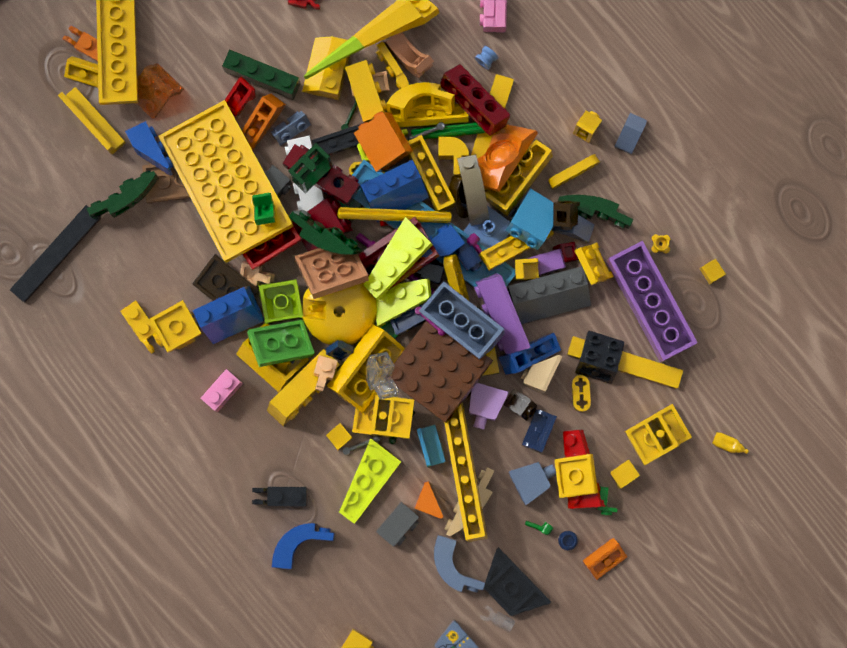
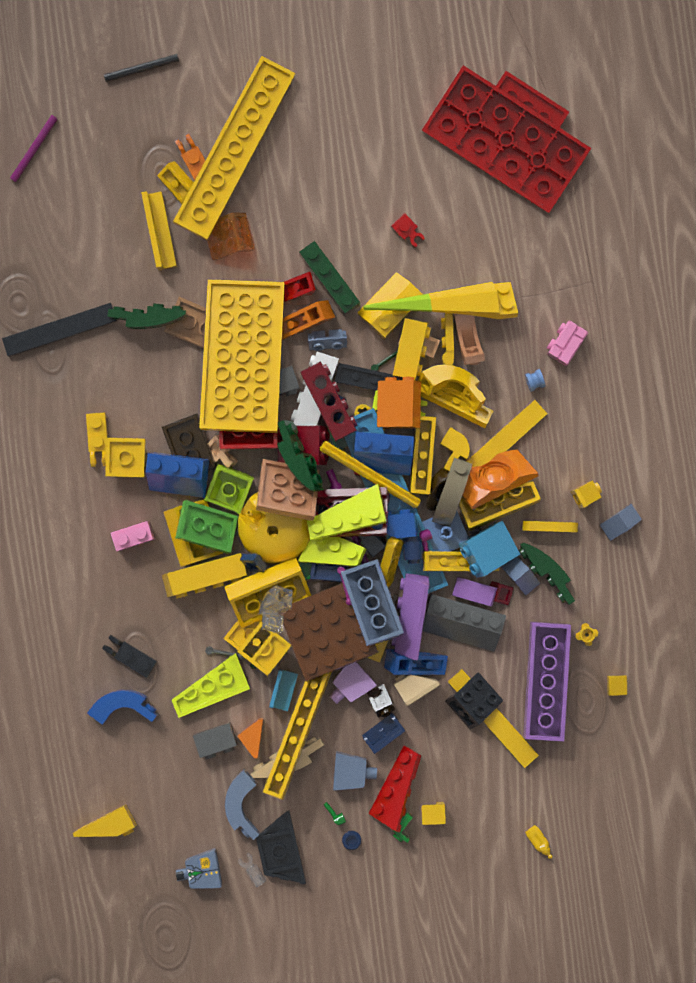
camera: 25 degrees right, 5 degrees up
(145, 146) = (191, 280): blue slope -> none
(263, 208) = (260, 404): green bracket -> none
(312, 170) = (320, 395): dark green window -> none
(324, 370) = (230, 573): light nougat plate -> none
(339, 436) = (210, 635): yellow slope -> none
(441, 126) = (458, 418): dark grey hinge -> none
(450, 131) = (462, 425): green axle -> none
(475, 100) = (499, 422): dark red brick -> none
(526, 269) = (456, 589): yellow panel -> none
(565, 214) = (518, 562): dark brown brick -> none
(576, 476) = (390, 791): yellow tile -> none
(585, 392) = (434, 720): yellow beam -> none
(593, 264) = (517, 618): yellow plate -> none
(605, 558) = (373, 874): orange slope -> none
(658, 434) = (482, 798): yellow bracket -> none

